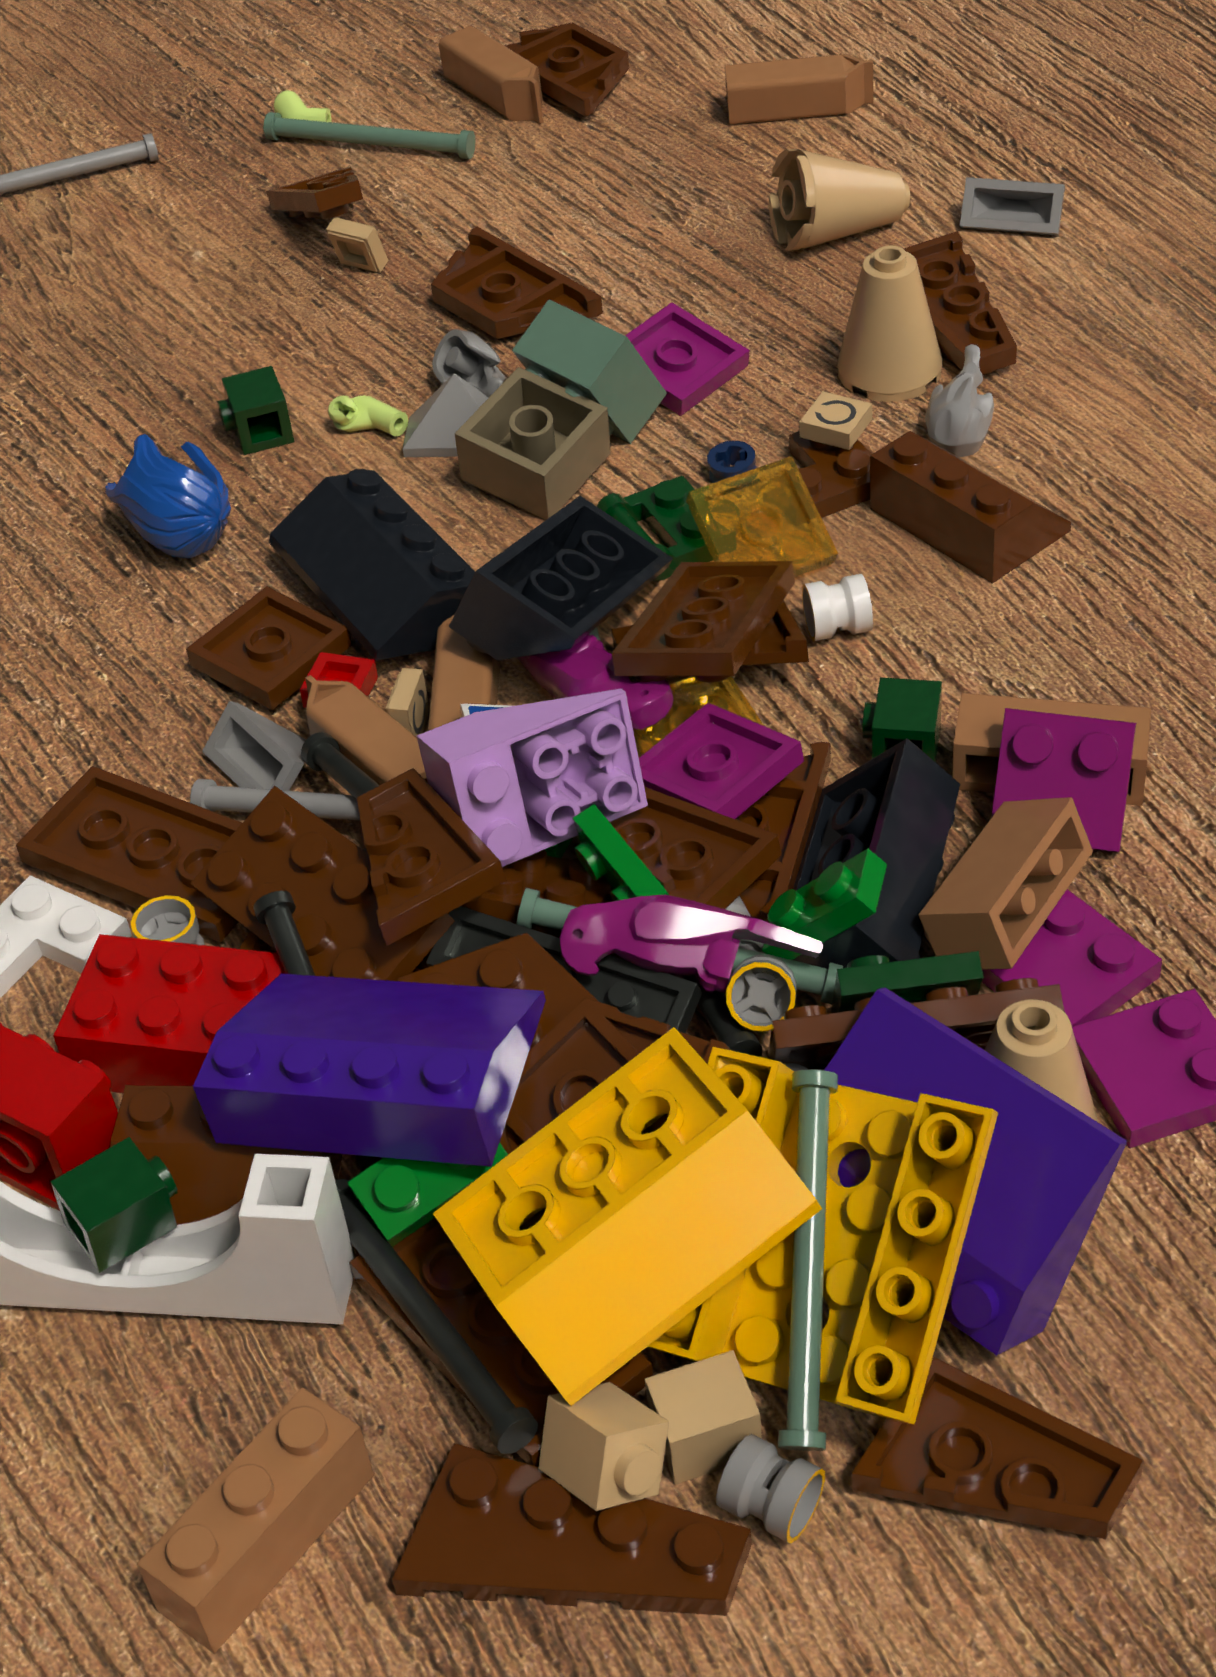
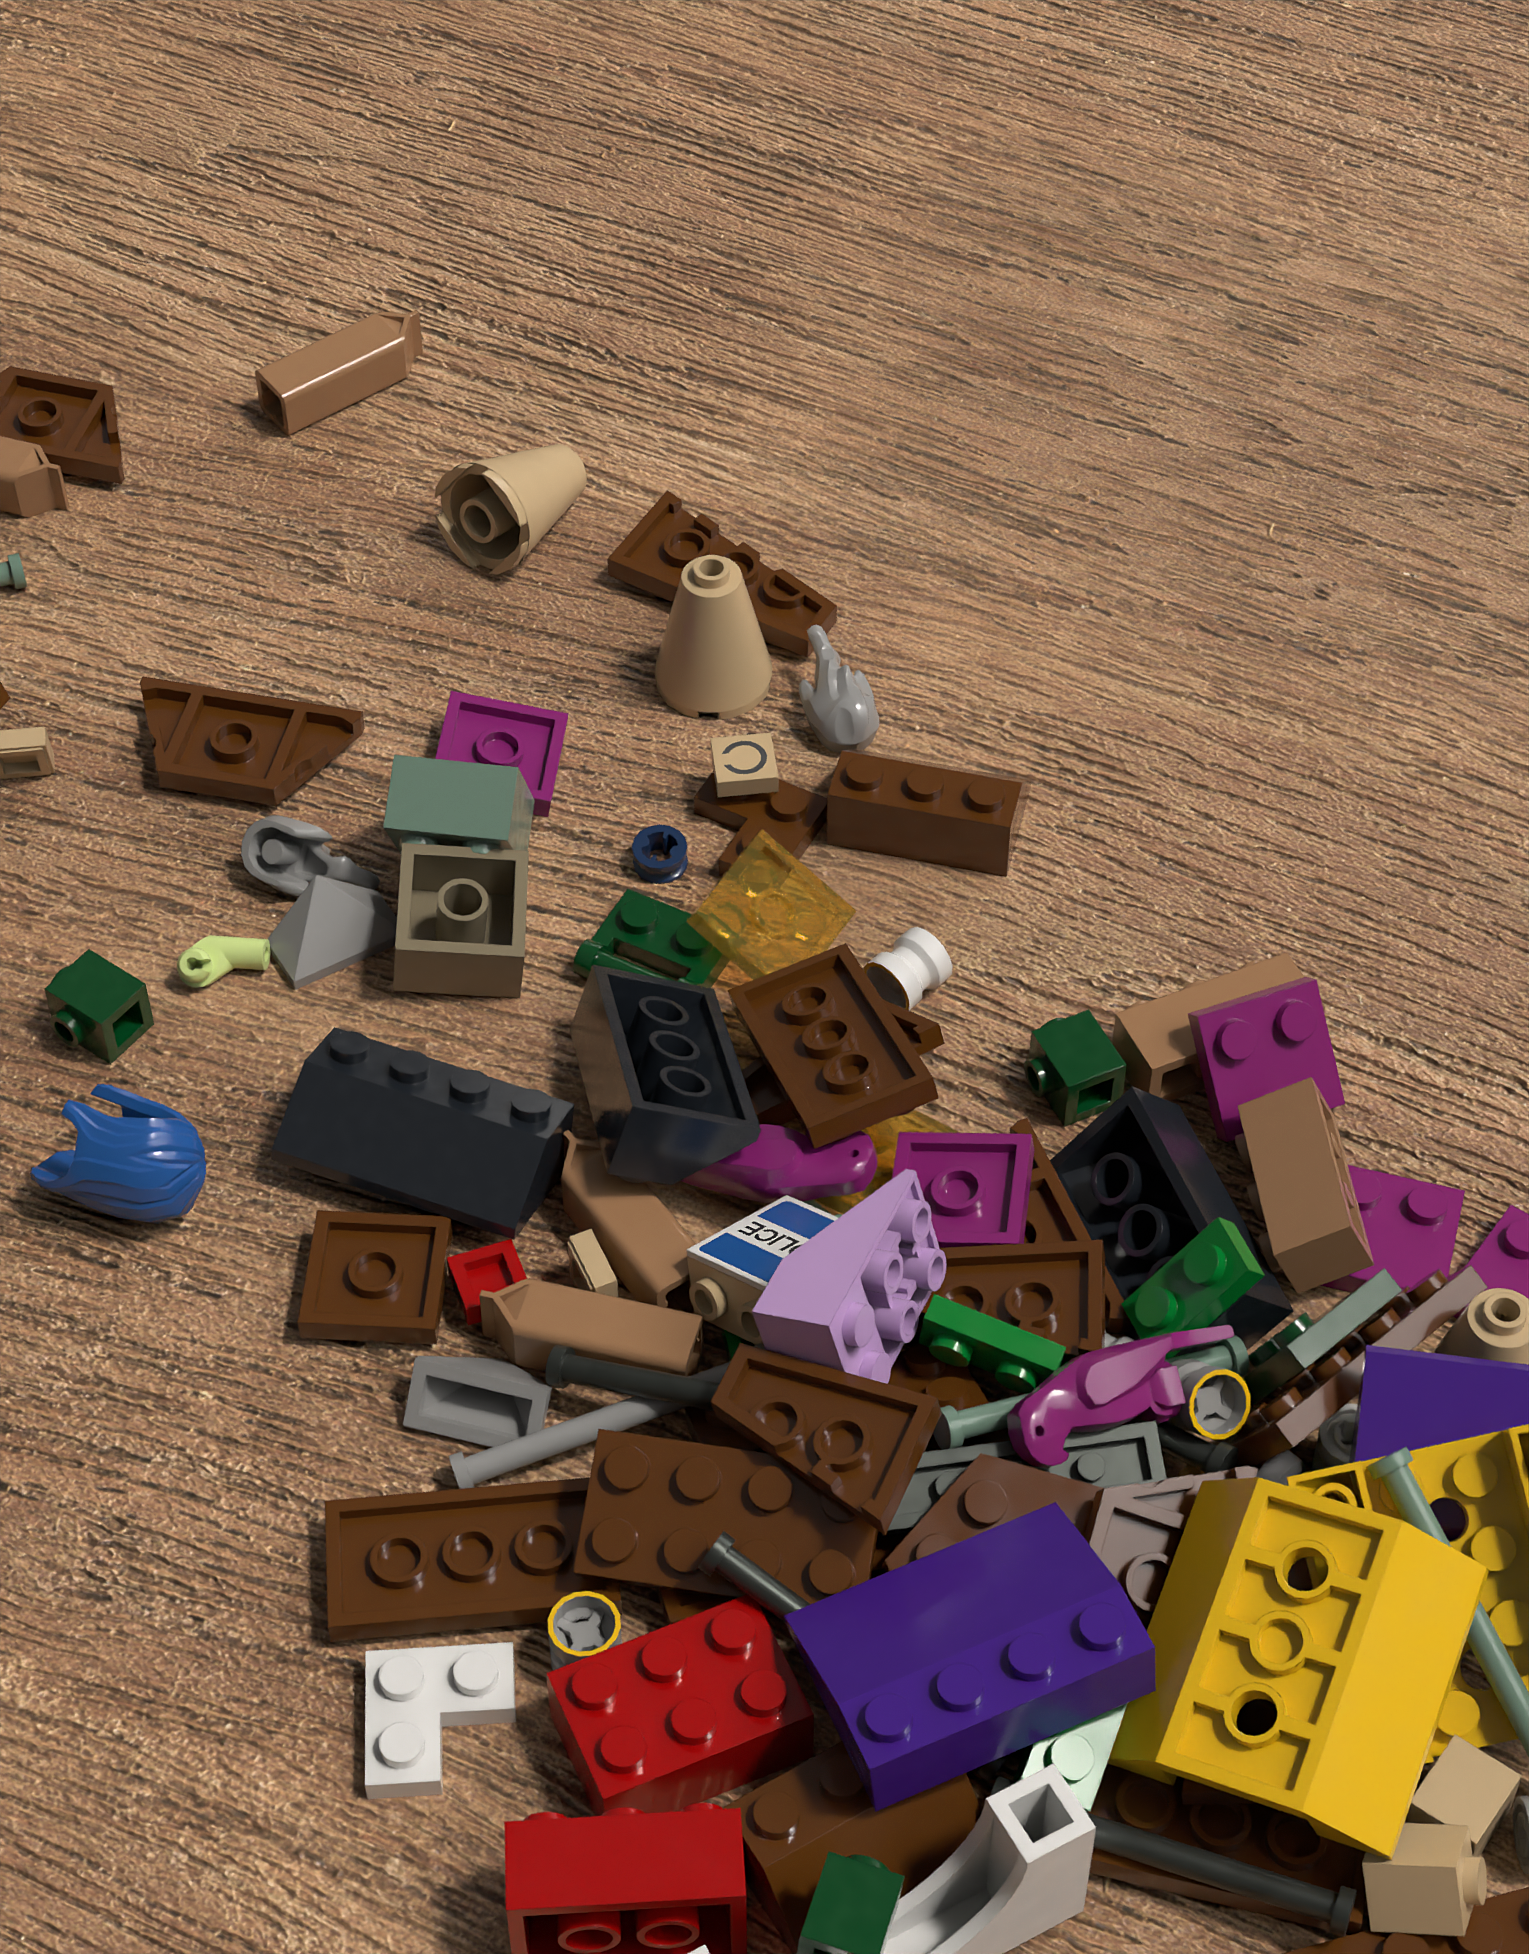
camera: 40 degrees left, 5 degrees up
(1012, 206) = (690, 438): light grey slope -> none

